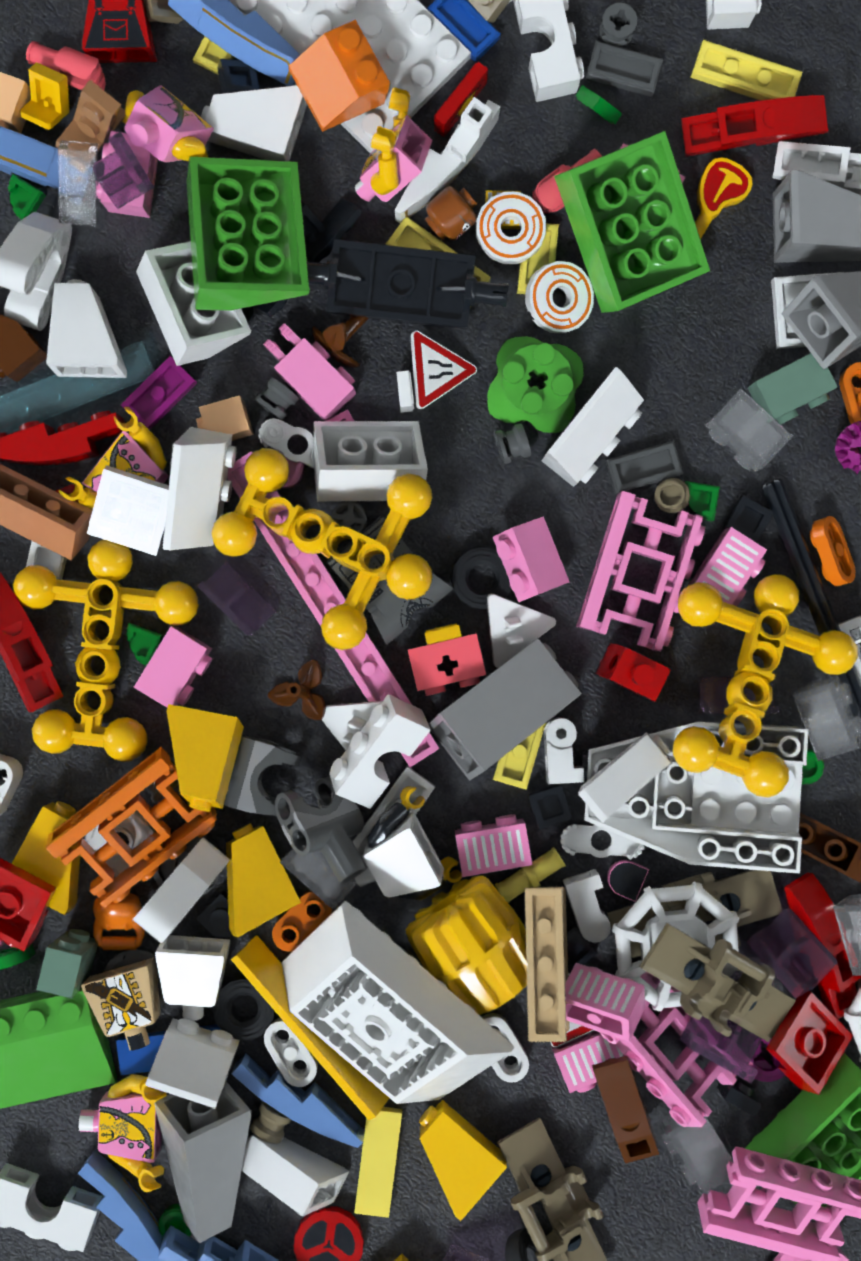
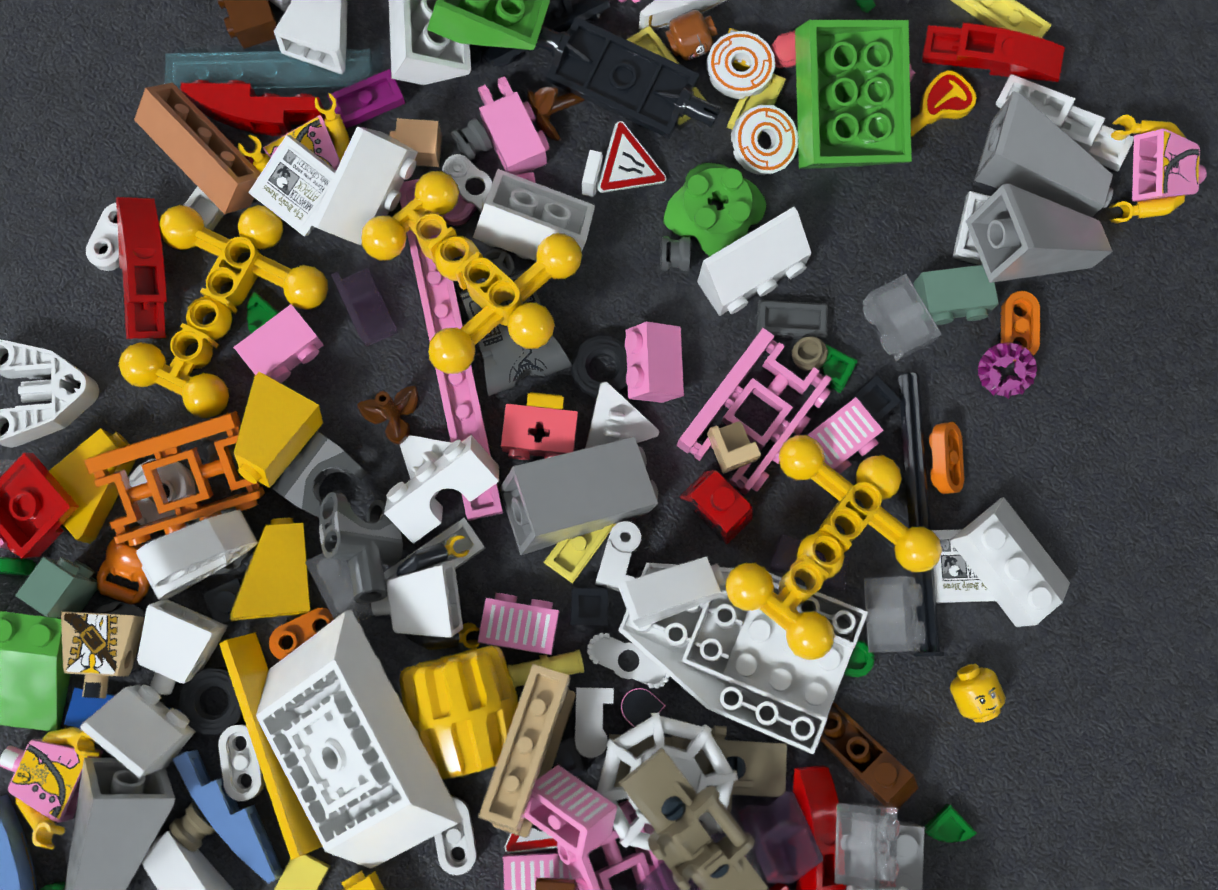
camera: 10 degrees right, 10 degrees down
(633, 616) = (732, 446): none -> tan panel

